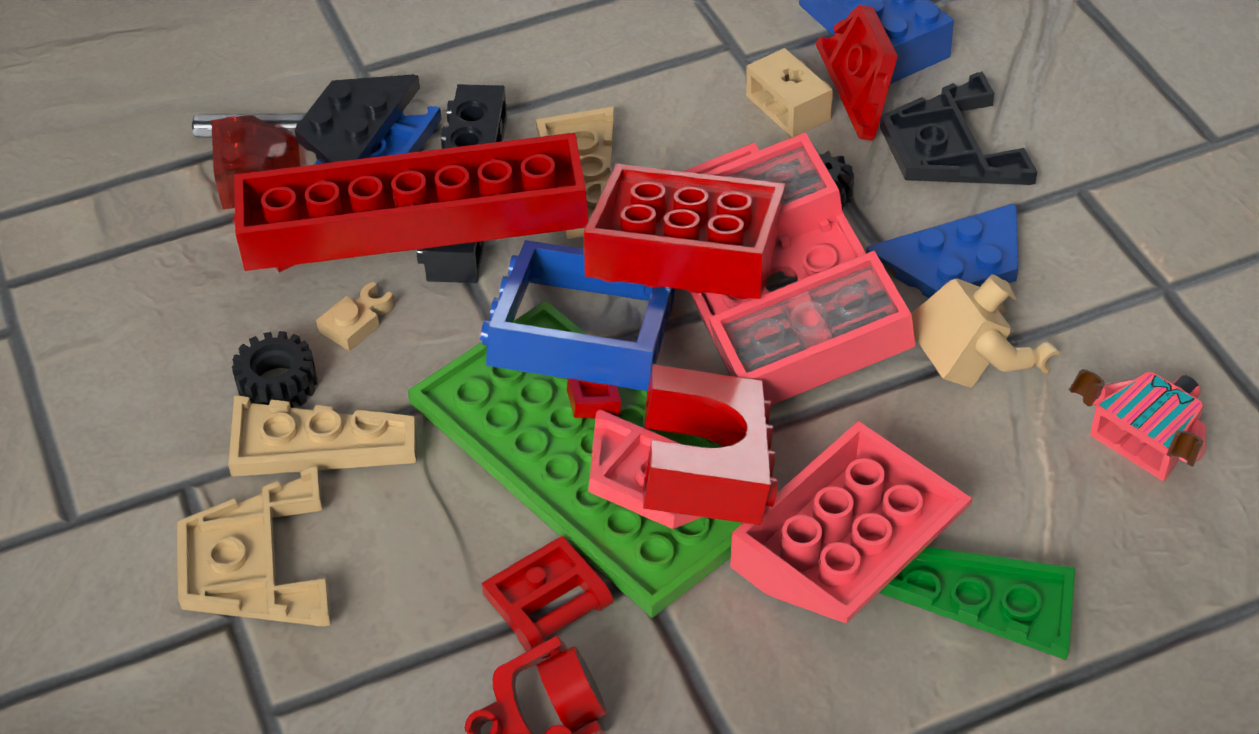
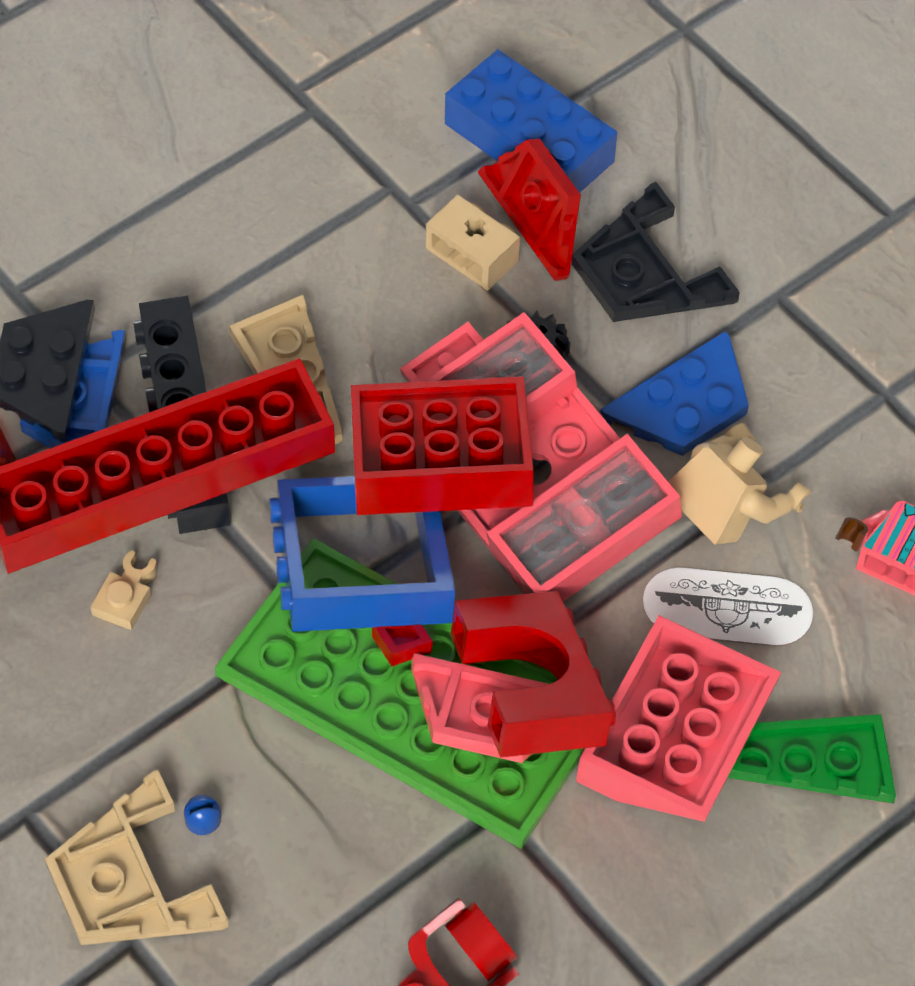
camera: 20 degrees left, 10 degrees up
(273, 354) = (67, 652): black tyre -> none
(294, 439) = (129, 741): tan wing -> none
(347, 518) = (204, 820): none -> blue hinge
(537, 582) = (408, 838): red plate -> none
(952, 442) = (730, 605): none -> white sticker

